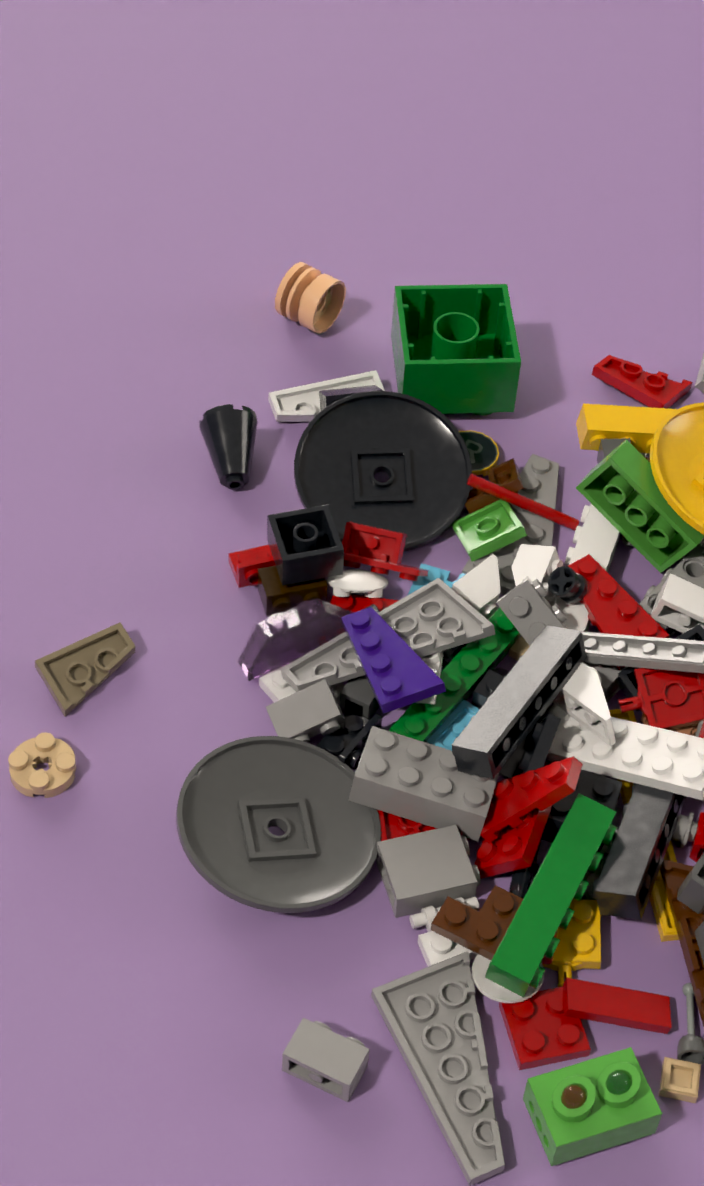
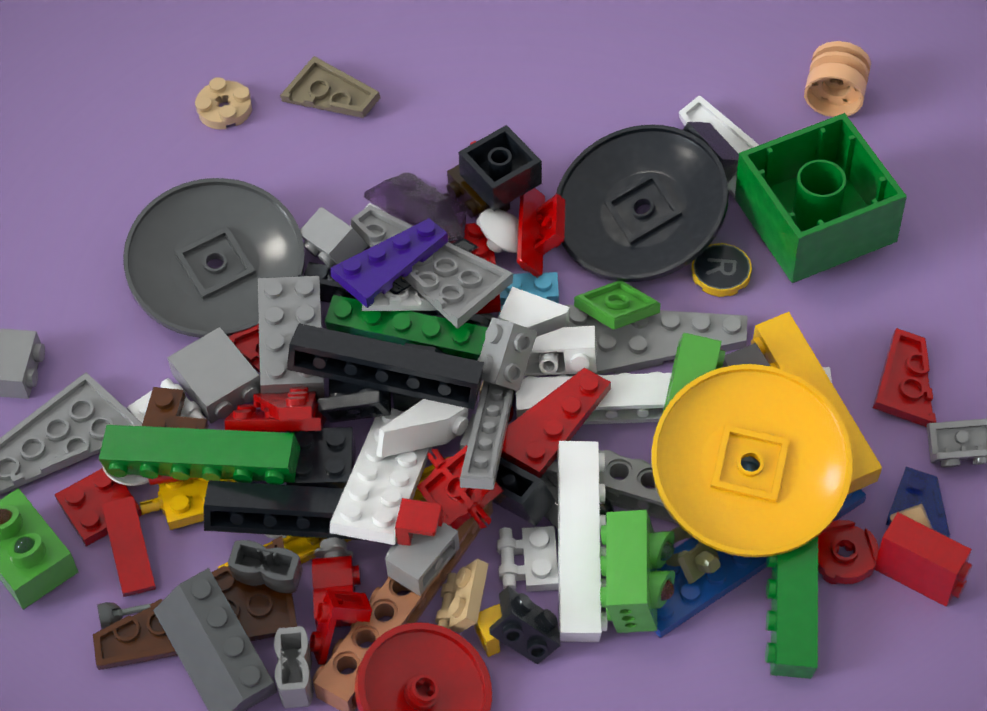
camera: 75 degrees right, 5 degrees up
(230, 442) = (615, 91): black cone -> none
(504, 475) = (680, 298): reddish brown plate -> none
(522, 502) = (659, 314): red bar -> none
(564, 577) = (556, 372): black wheel -> none
(679, 1080) = (79, 616): tan tile -> none

